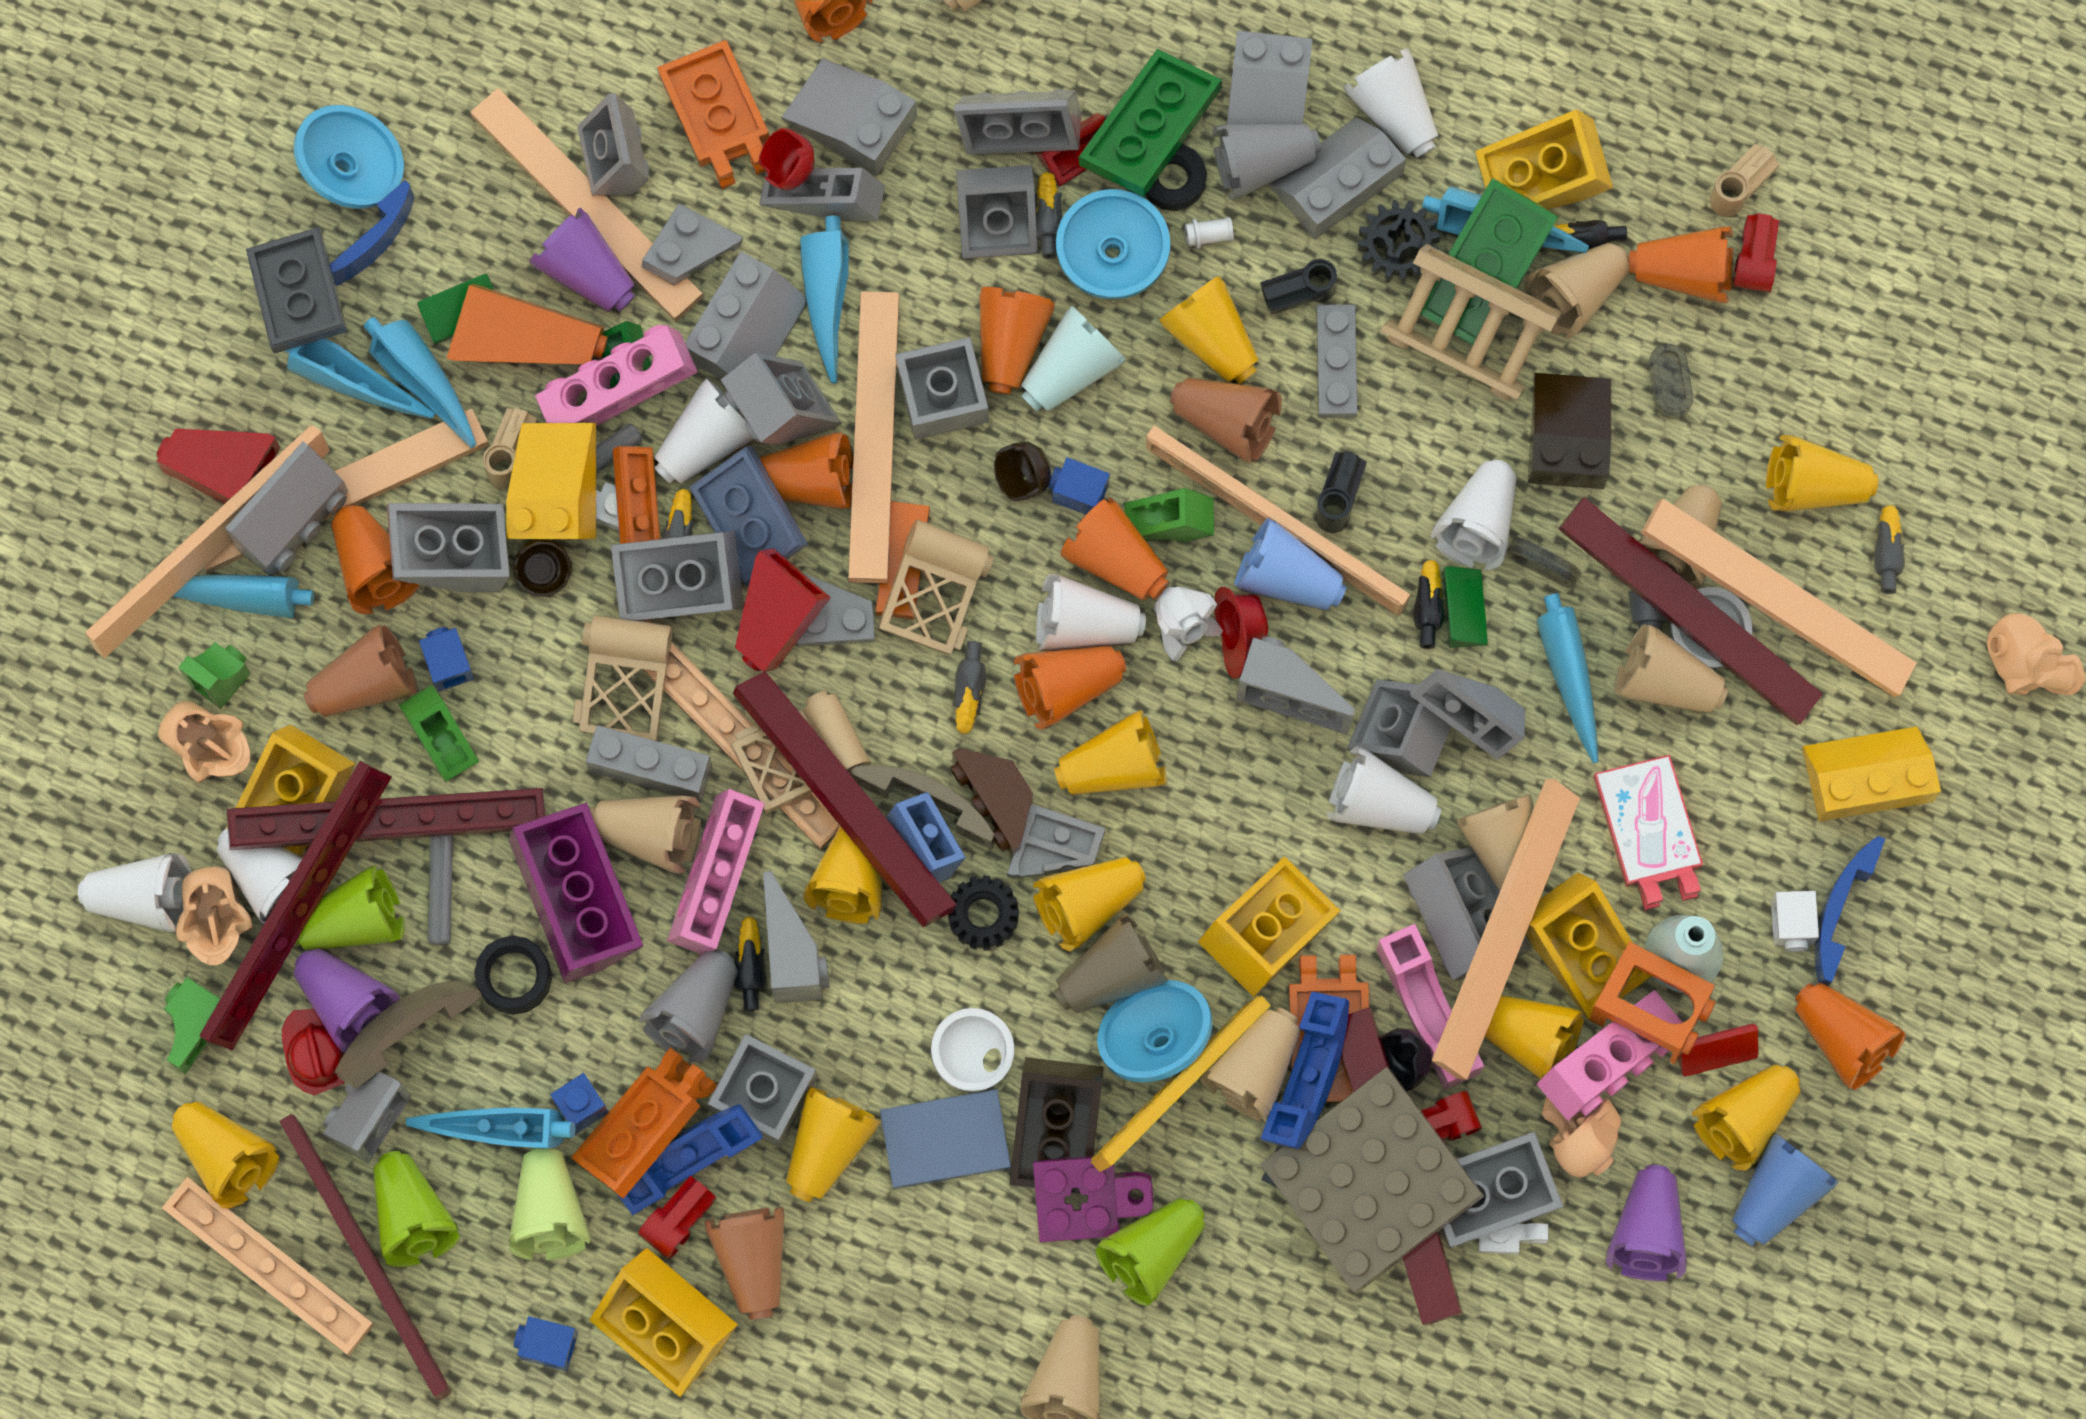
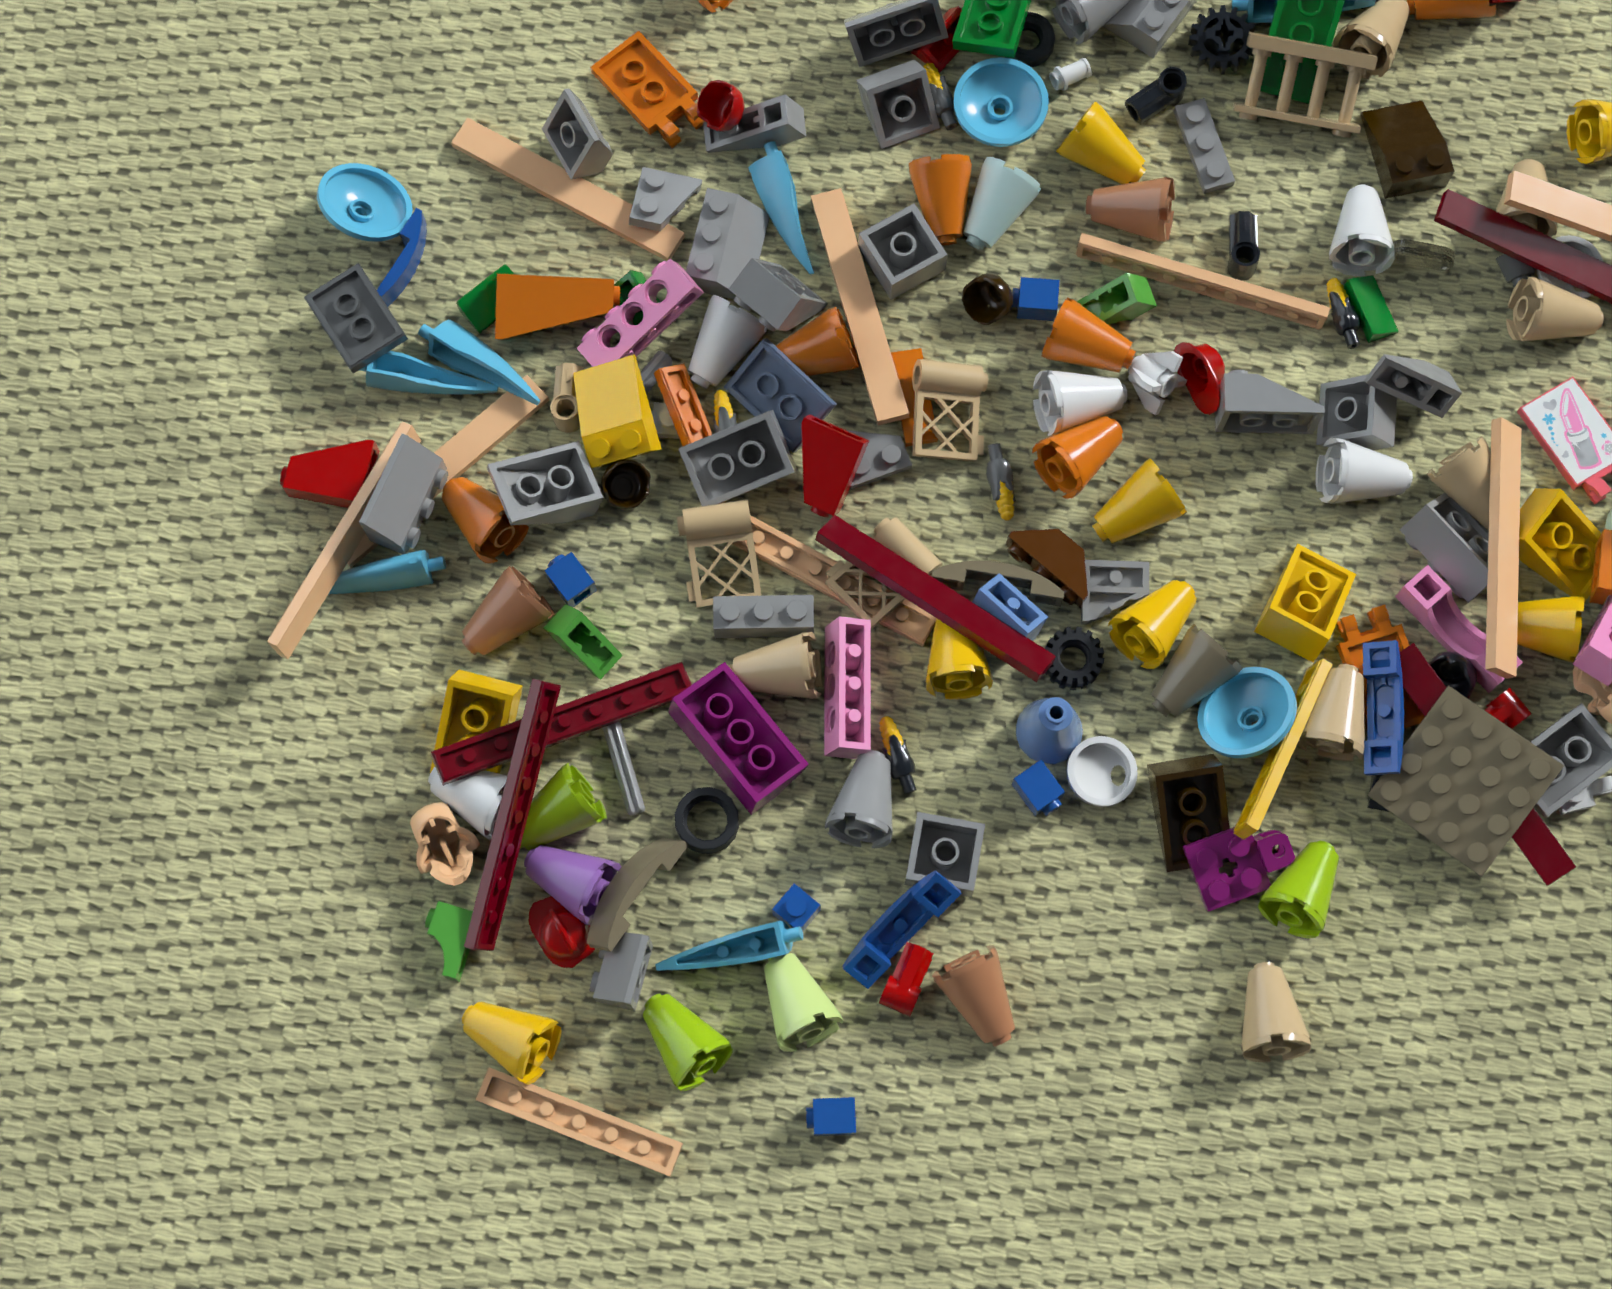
camera: 15 degrees left, 0 degrees up
(139, 891) = (376, 842): white cone -> none
(205, 741) = (393, 702): light nougat head -> none
(216, 673) = (384, 645): bright green arch -> none
(366, 1257) = (659, 1089): dark red tile -> none
(585, 263) = (583, 233): medium lavender cone -> none
(643, 1123) = (855, 910): orange tile -> none
(662, 1321) = (923, 1070): yellow slope -> none
(793, 955) = (932, 732): light grey slope -> none
(826, 1142) = (1010, 882): yellow cone -> none
(852, 114) = (758, 59): light grey slope -> none
(894, 1049) = (1039, 789): none -> blue brick
(930, 986) = (1049, 730): none -> medium blue cone
(945, 1139) = (1102, 850): sand blue tile -> none
(1288, 570) = (1224, 316): light blue cone -> none
(1569, 667) = (1468, 328): medium azure piece -> none
(1670, 381) = (1469, 89): clear smoke tile -> none

